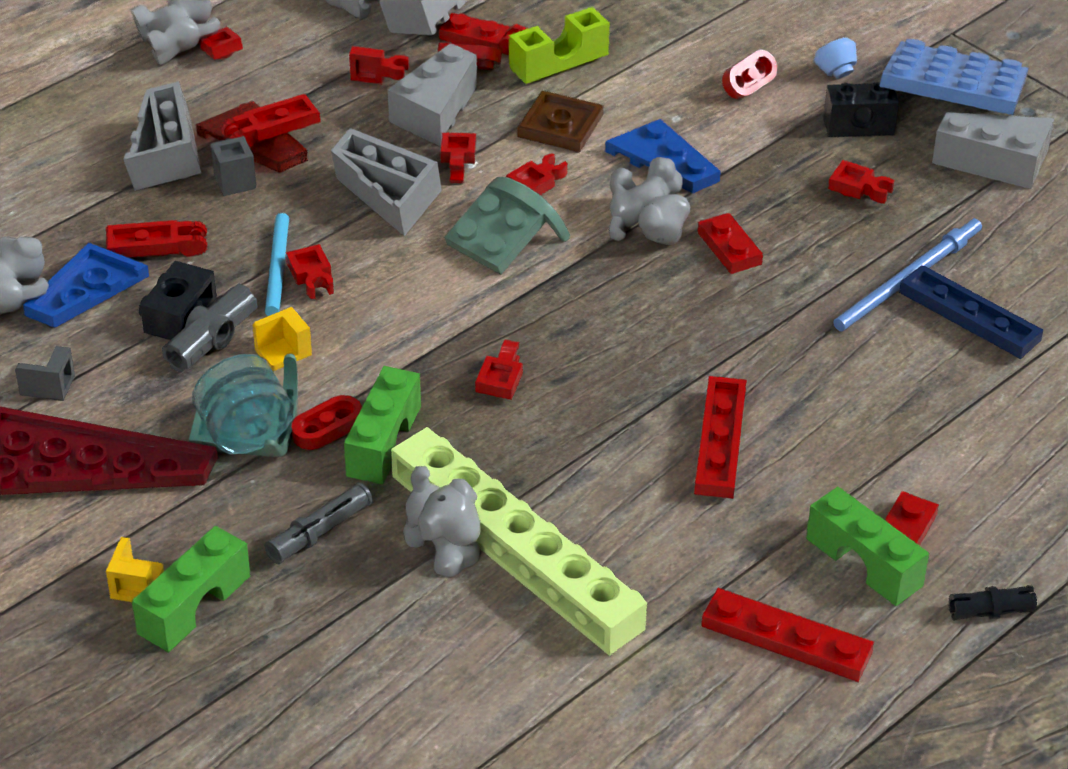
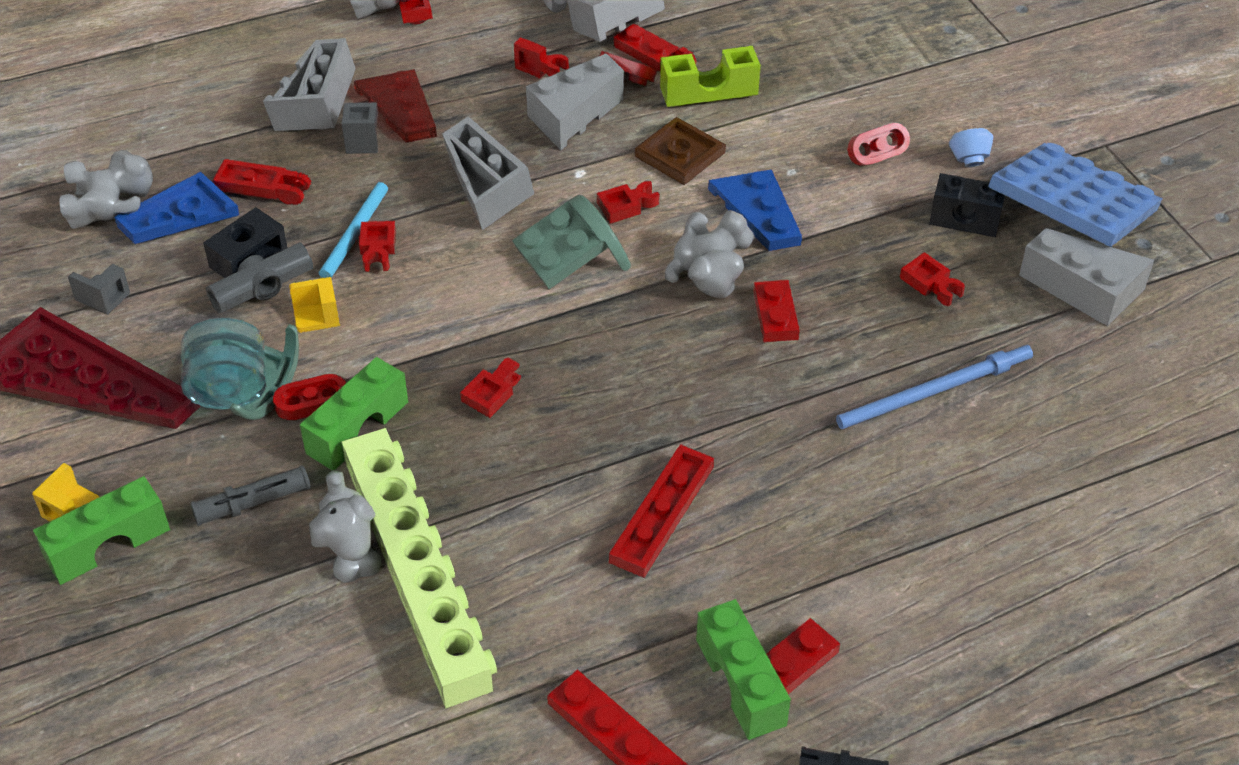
camera: 20 degrees right, 5 degrees up
(272, 120) = (411, 92): red hinge -> none
(458, 150) = (566, 158): red plate -> none
(971, 311) = (977, 443): dark blue plate -> none

